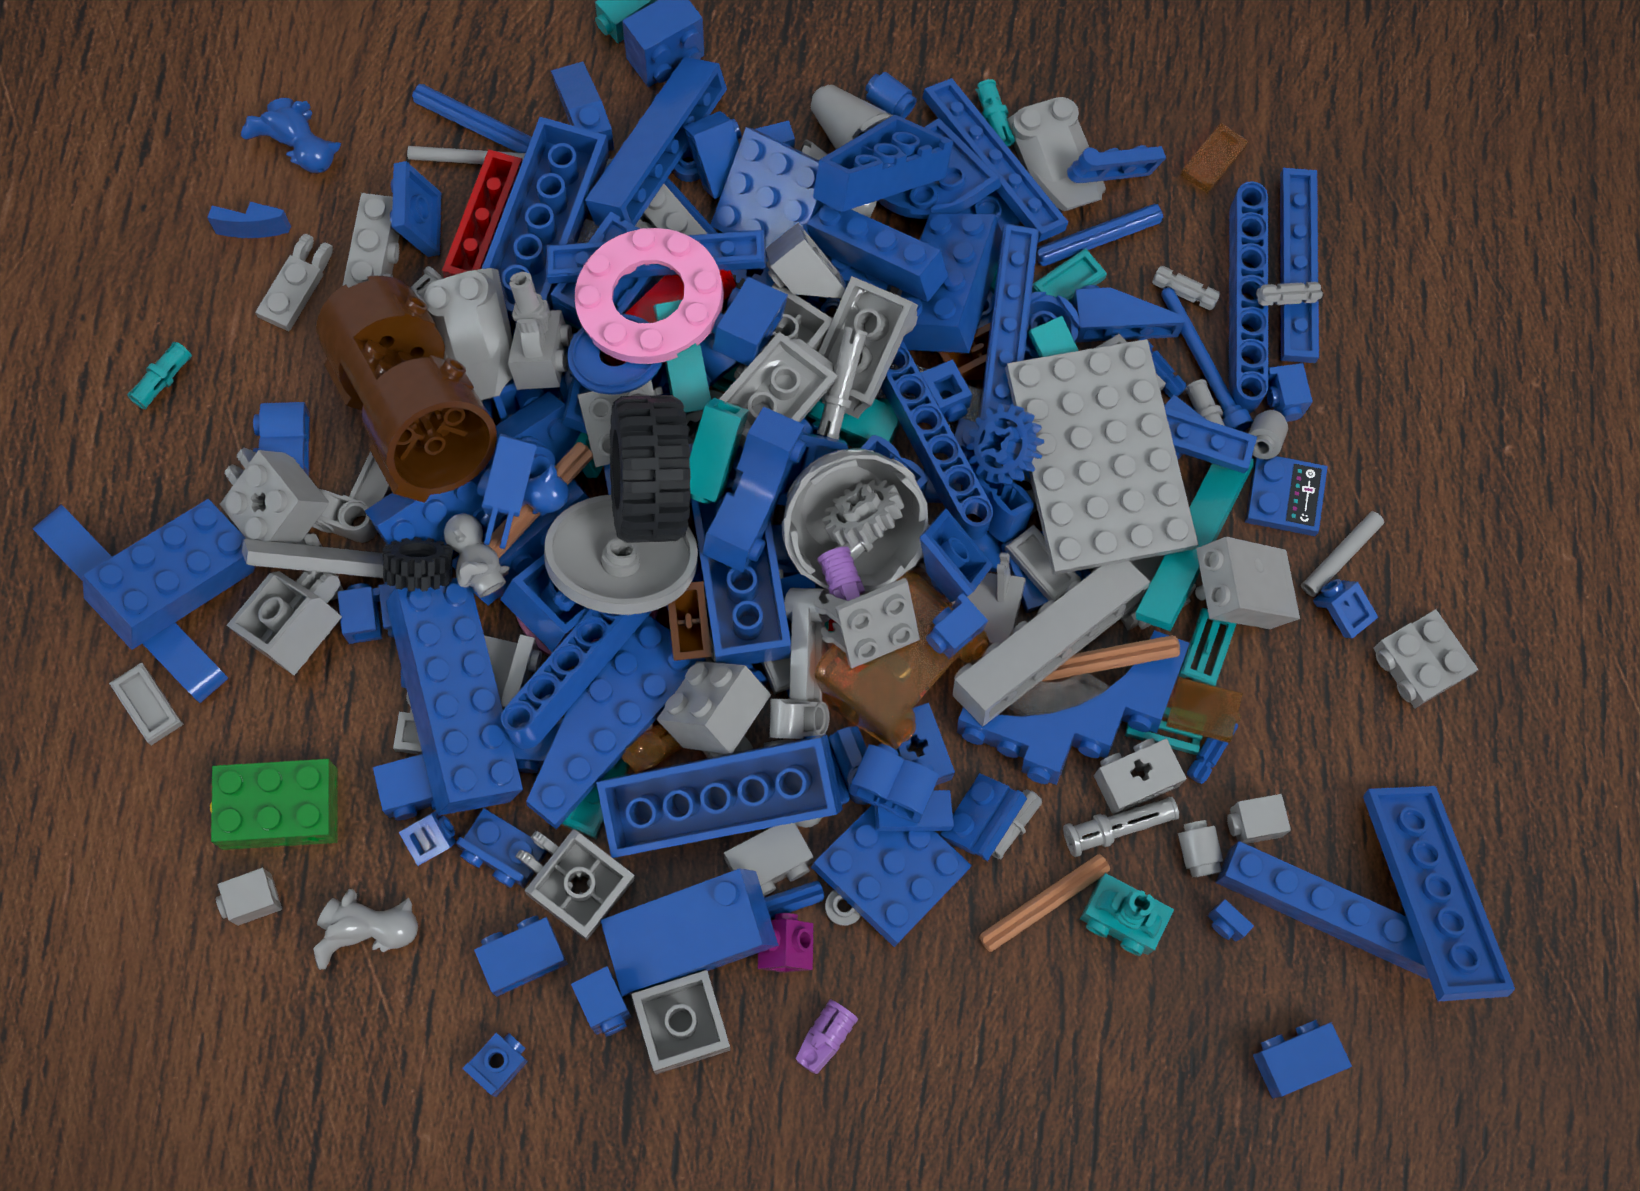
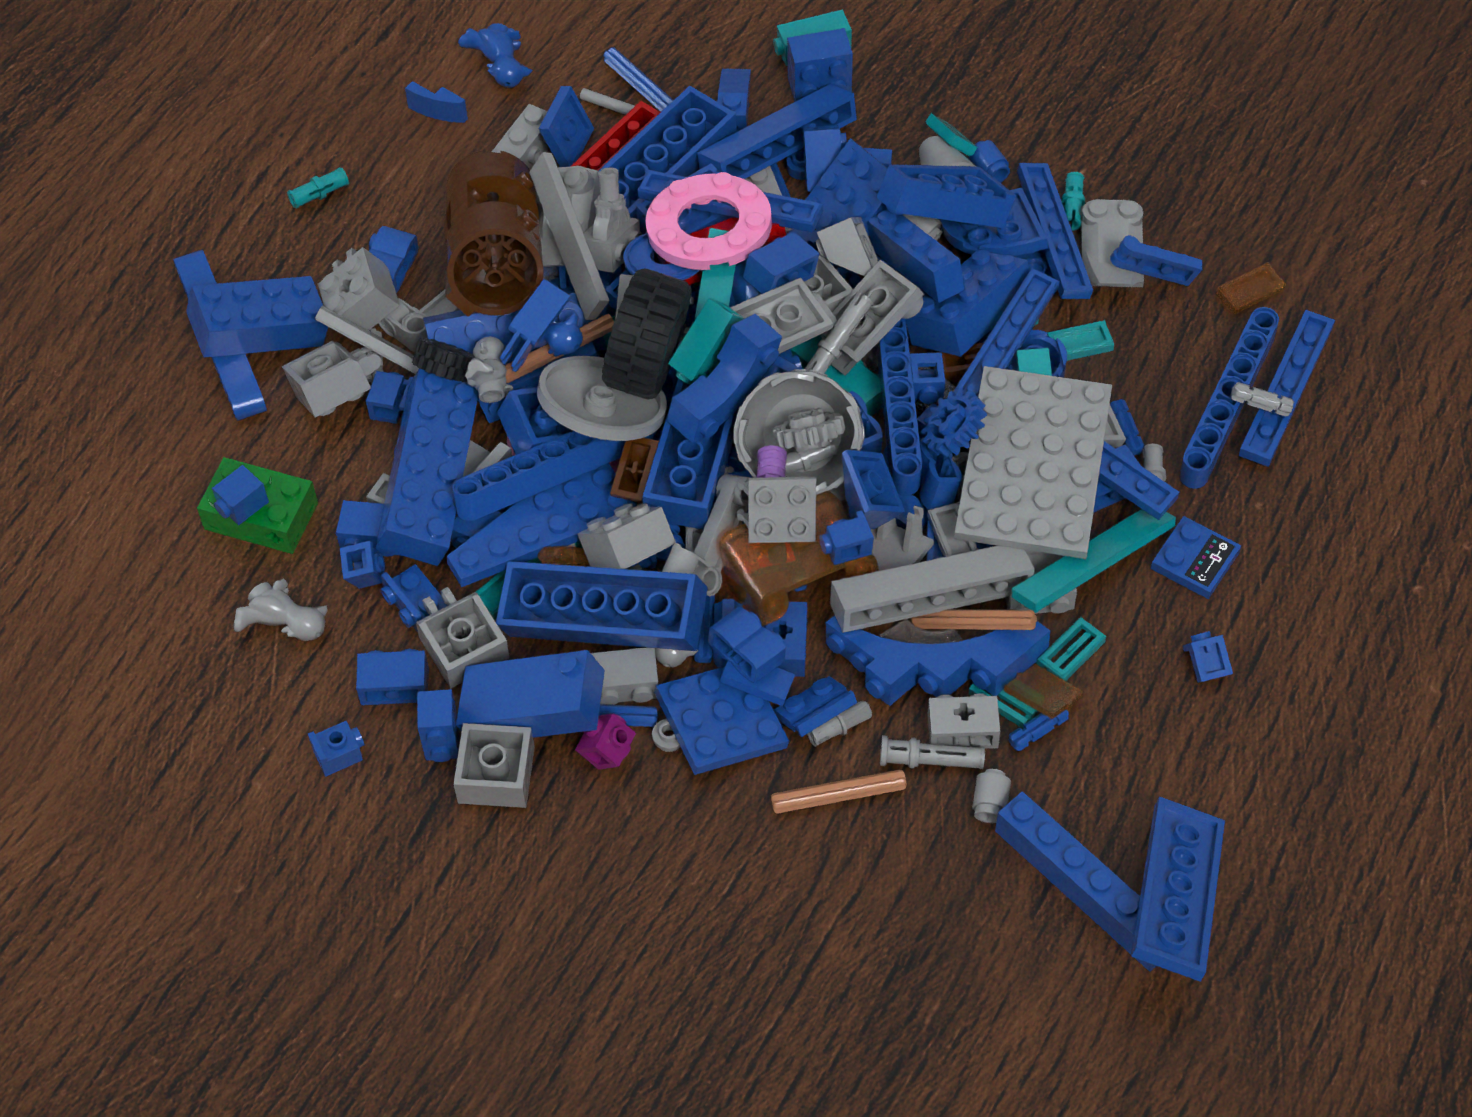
camera: 30 degrees right, 15 degrees down
(146, 704) = (197, 408): light grey tile -> none
(248, 897) = (206, 563): light grey brick -> none
(258, 817) = (239, 495): none -> blue brick
(294, 284) = (437, 165): light grey hinge -> none
(496, 363) = (569, 236): none -> light grey tile
(825, 1036) = (607, 822): medium lavender hinge -> none
(839, 78) = (951, 135): none -> teal tile
(1099, 234) = (1121, 314): blue axle -> none
(1111, 312) = (1103, 366): blue slope -> none
(1126, 915) = (902, 819): teal brick -> none
(1186, 287) = (1179, 375): light grey axle -> none
(1229, 921) = (989, 858): blue plate -> none
(1233, 414) = (1175, 477): blue piece -> none
(1247, 583) = (1121, 600): light grey piece -> none
(1259, 819) = (1053, 789): light grey brick -> none
(1270, 431) = (1196, 502): light grey brick -> none
(1289, 391) = (1230, 476): blue brick -> none
(1302, 1059) = (1003, 985): blue brick -> none
(1342, 553) = (1226, 617): light grey piece -> none
(1424, 659) = (1261, 721): light grey plate -> none

